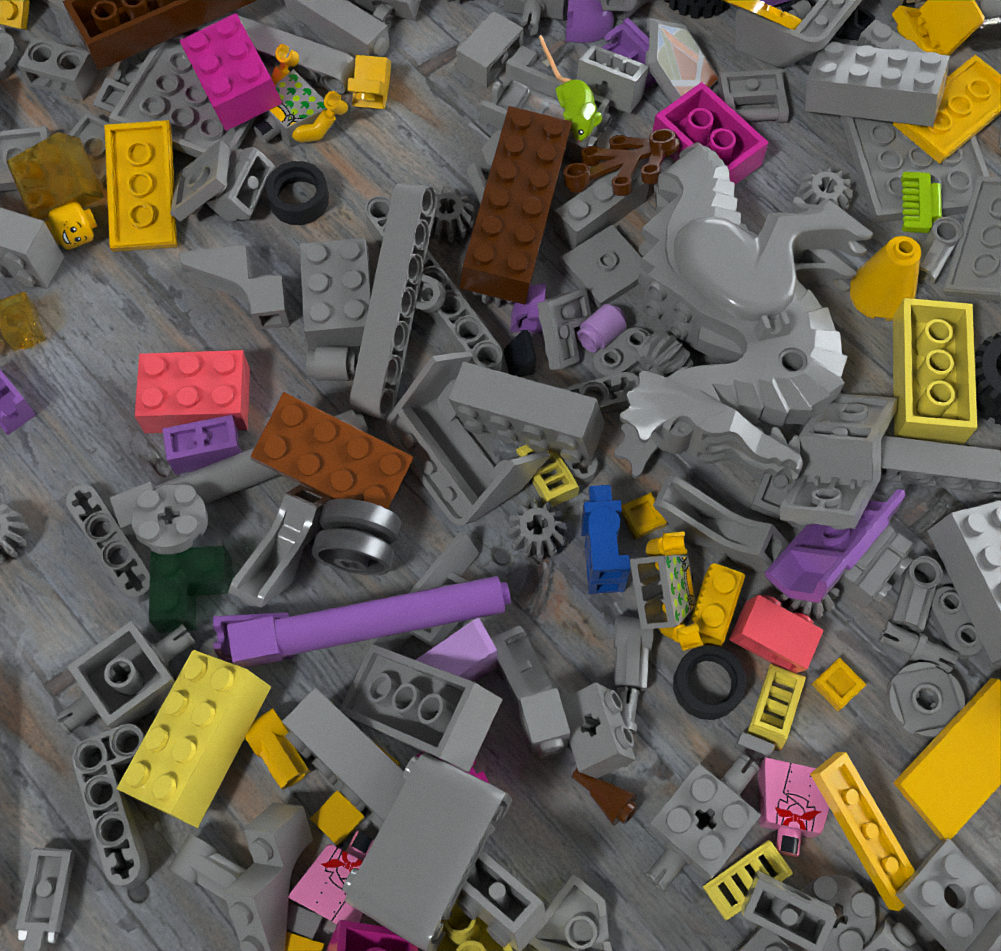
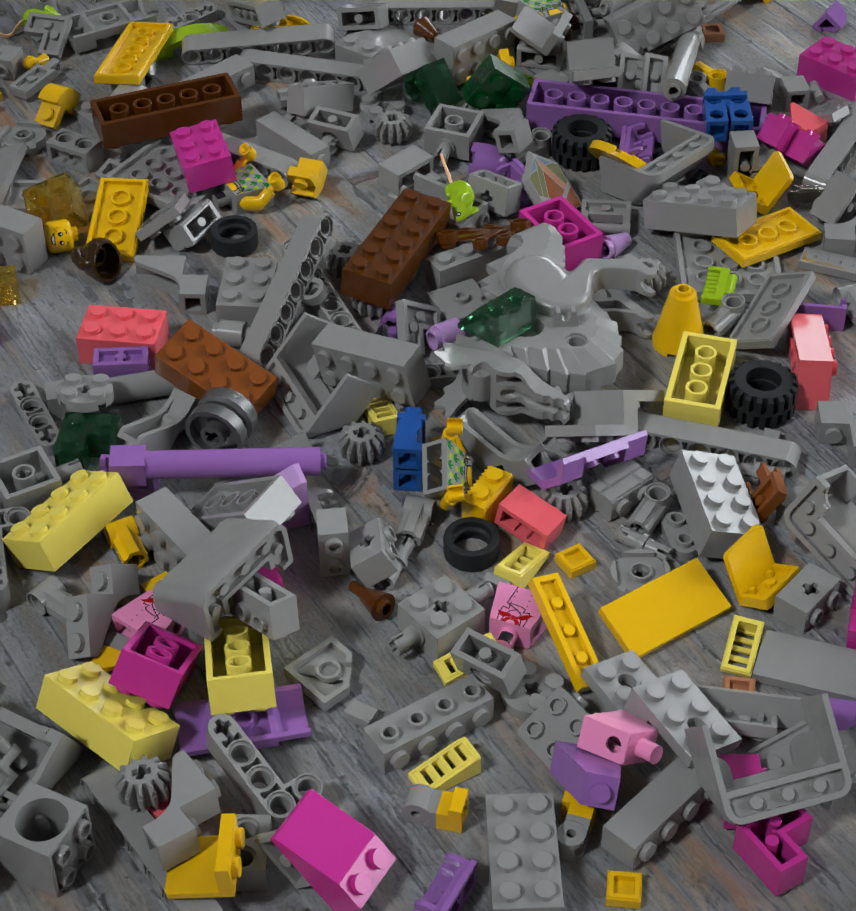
camera: 10 degrees right, 25 degrees down
(131, 262) = (98, 259): none -> dark brown piece
(691, 340) = (502, 317): none -> clear green slope
(778, 141) = (615, 244): none -> lavender cone

